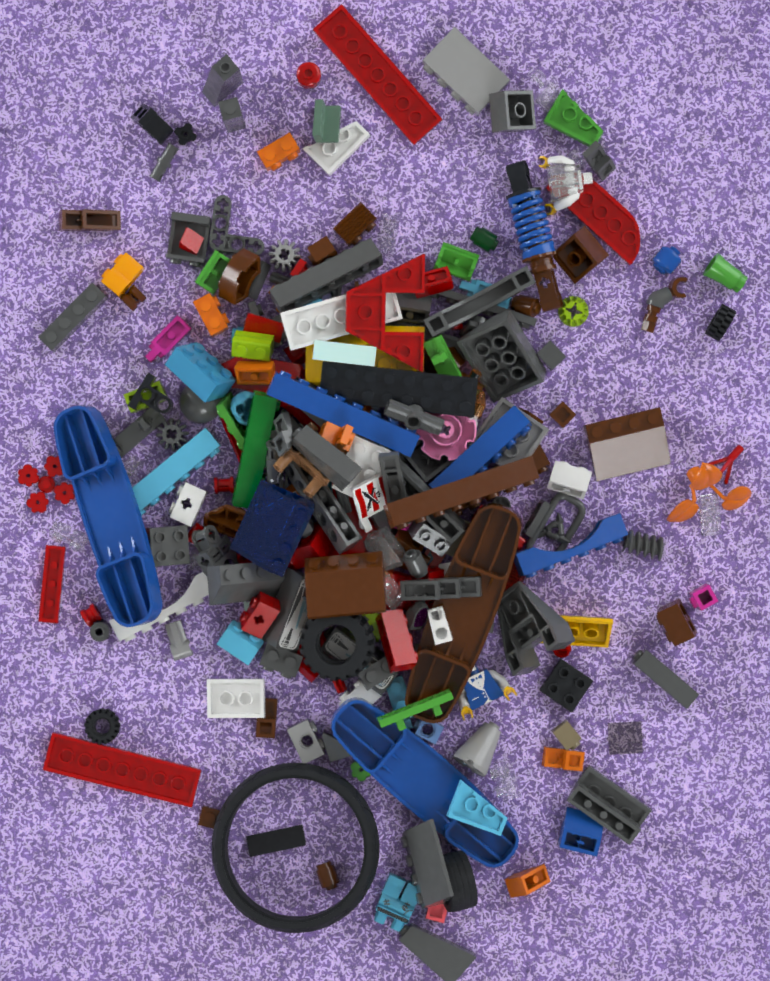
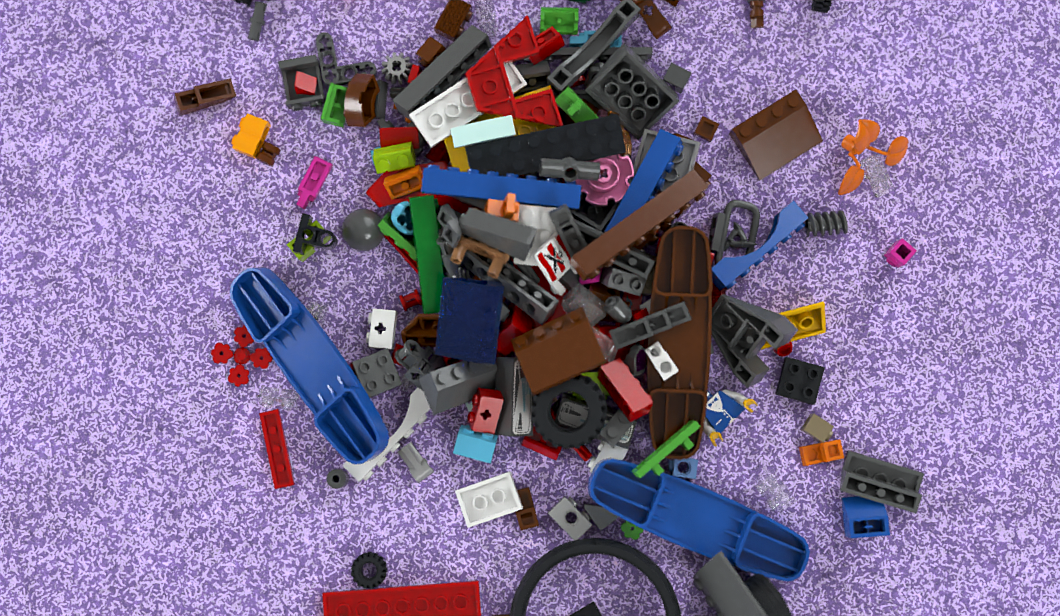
camera: 20 degrees left, 5 degrees down
(73, 317) = (217, 190): dark grey brick -> none
(91, 615) = (324, 466): red wheel -> none
(138, 431) = (311, 280): dark grey hinge -> none
(164, 434) = (346, 275): dark grey gear -> none
(175, 469) = (359, 300): medium azure brick -> none
(200, 371) = (353, 198): dark azure piece -> none
(213, 319) = (346, 145): orange brick -> none
(281, 661) = (520, 447): dark grey bracket -> none
(397, 693) = (642, 444): medium azure hinge -> none
(474, 810) = (758, 530): medium azure wing -> none
(479, 749) = (739, 470): light grey cone -> none
(526, 305) = (638, 38): reddish brown brick -> none
(527, 881) = (829, 583): orange slope -> none
(569, 479) = (735, 185): white brick -> none
(578, 319) = (677, 38): lime gear -> none
(625, 738) = (872, 412): clear smoke piece -> none
(665, 678) = (891, 342): dark grey brick -> none
(676, 622) = (883, 286): reddish brown brick -> none
(729, 462) = (877, 118): red plant -> none

